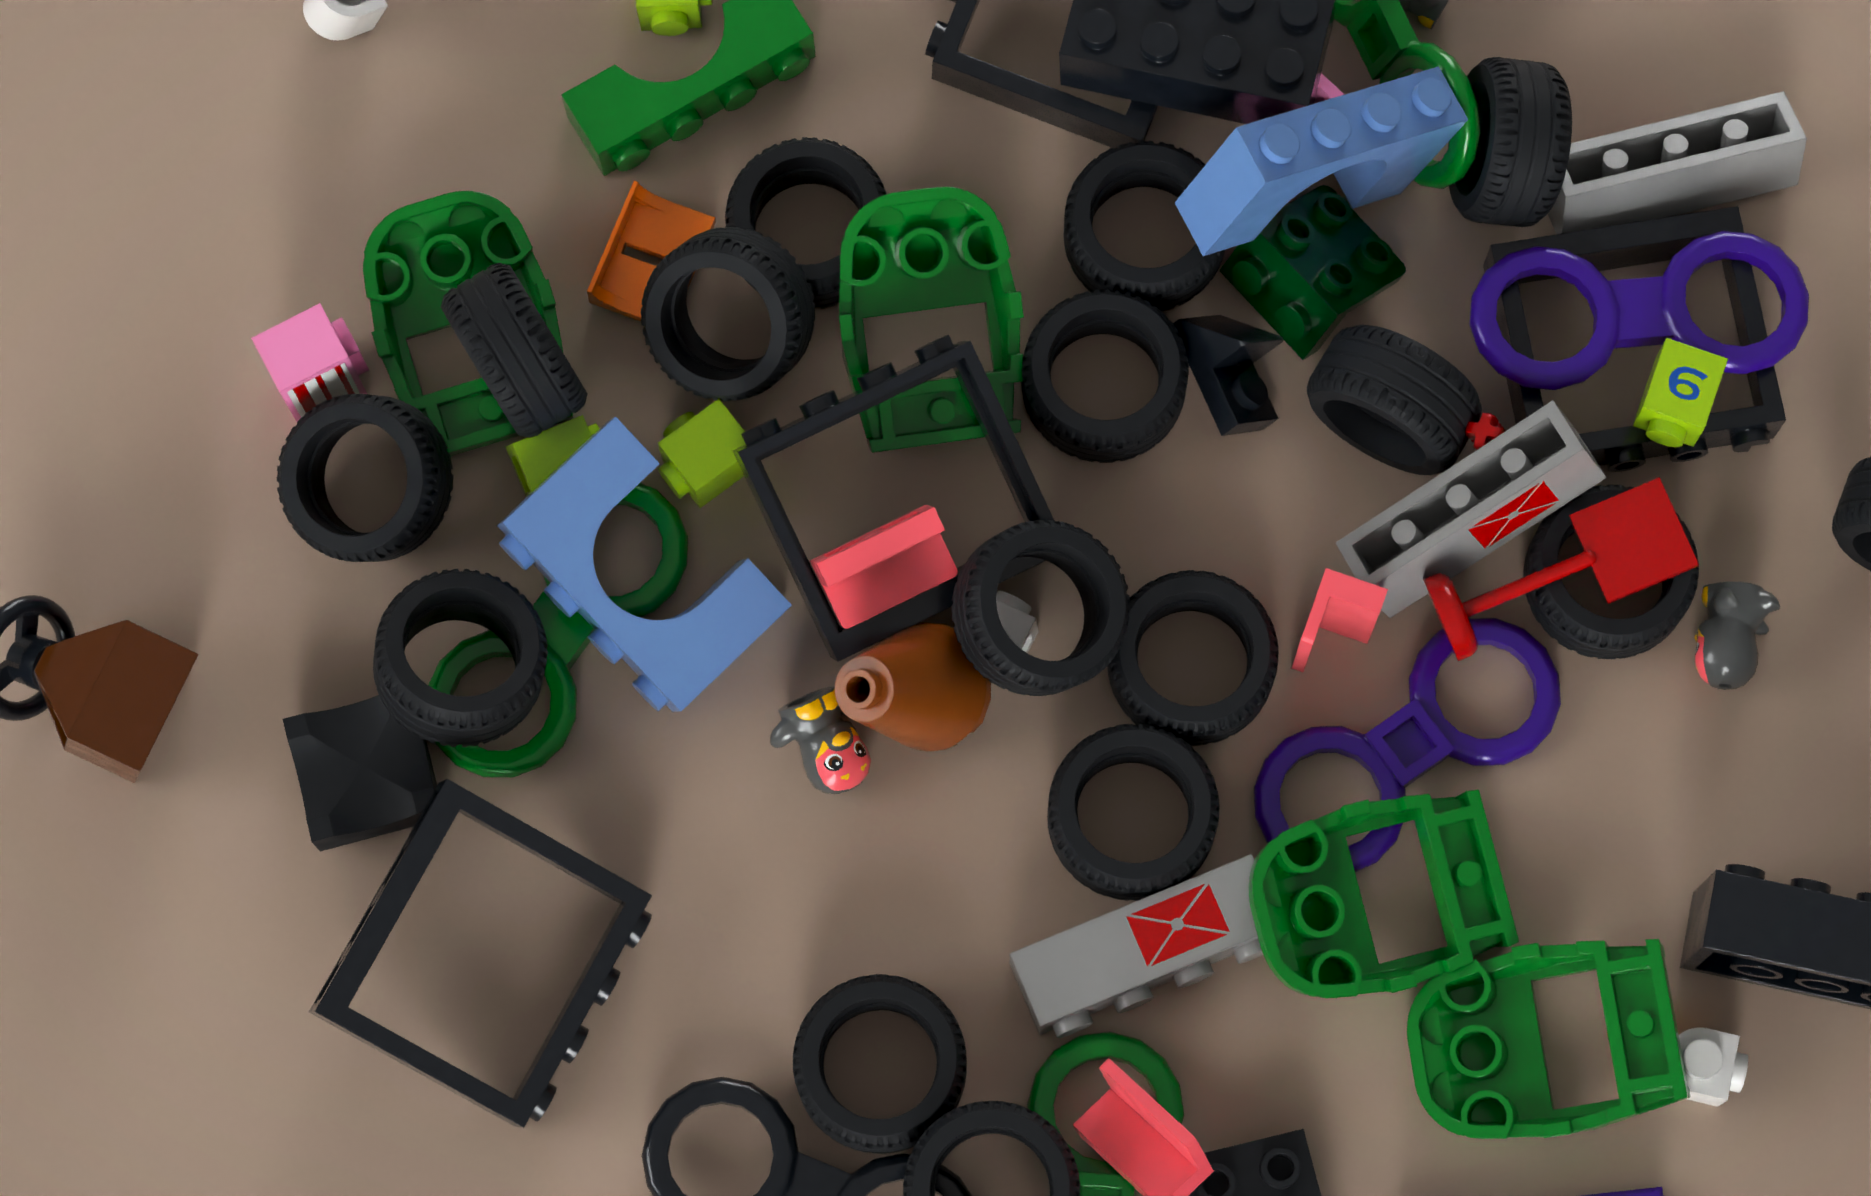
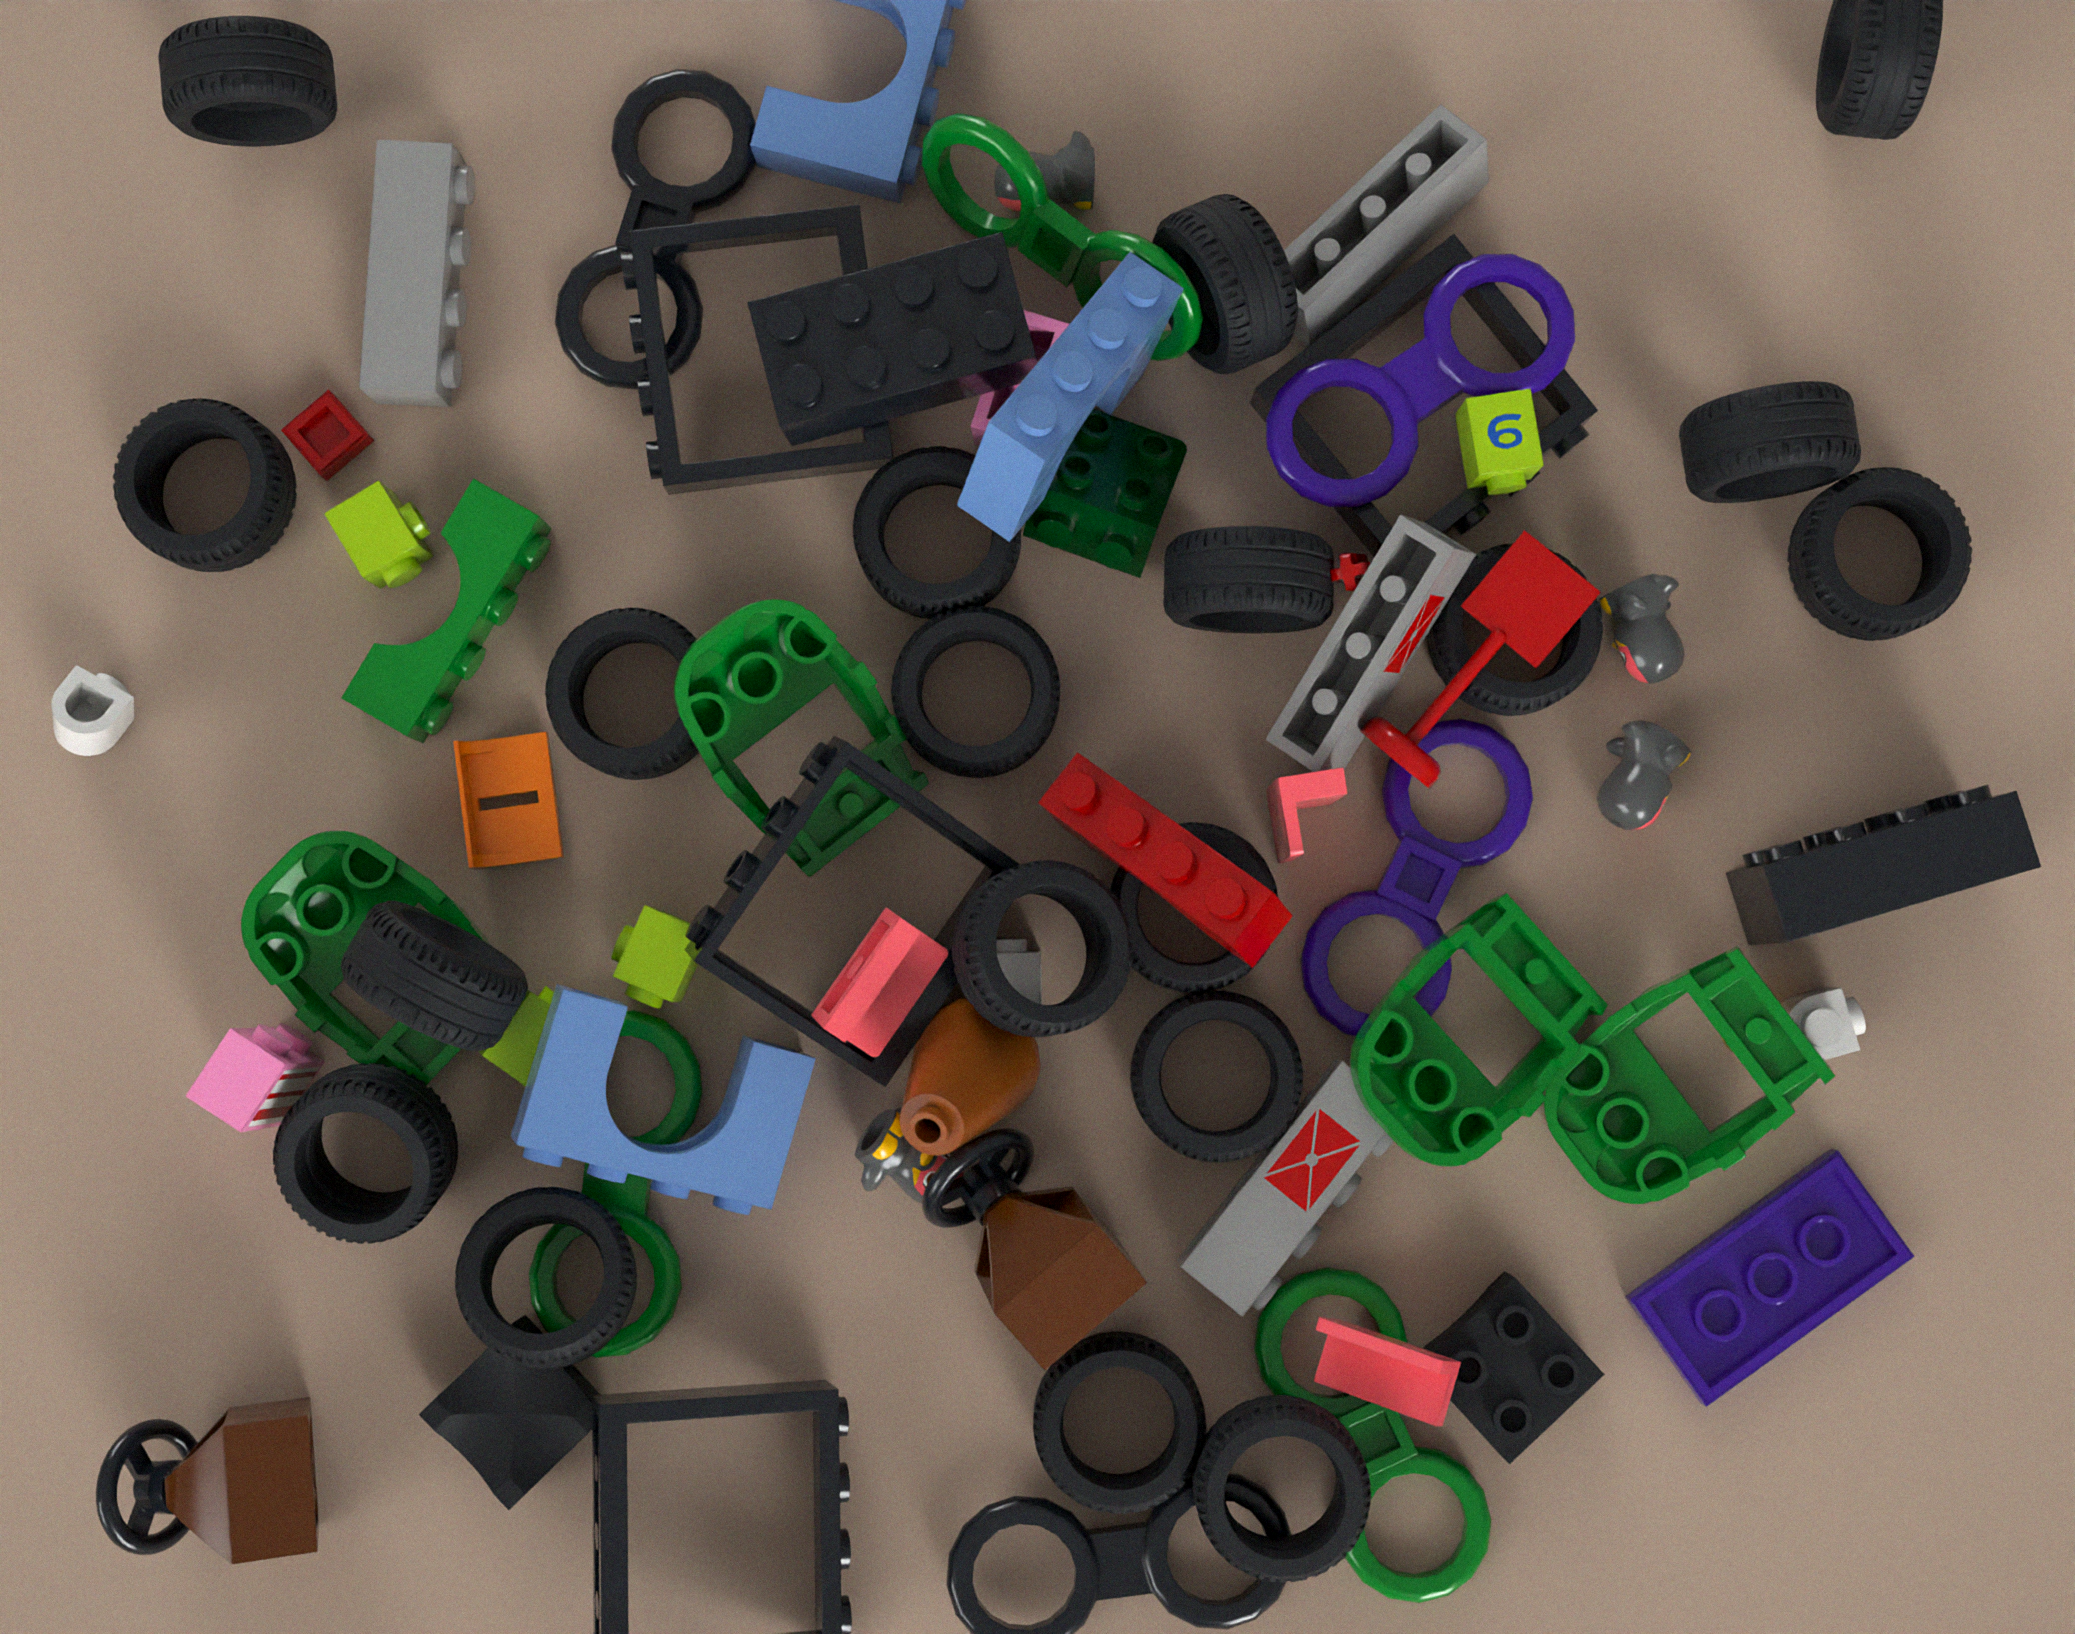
camera: 30 degrees left, 10 degrees up
(680, 347) = (600, 878): black tyre -> none
(893, 874) = (1040, 1252): none -> reddish brown piece
(1207, 617) = (1167, 859): none -> red arch
(1222, 363) = (1073, 623): black slope -> none
(1655, 764) = (1641, 781): none -> dark grey animal

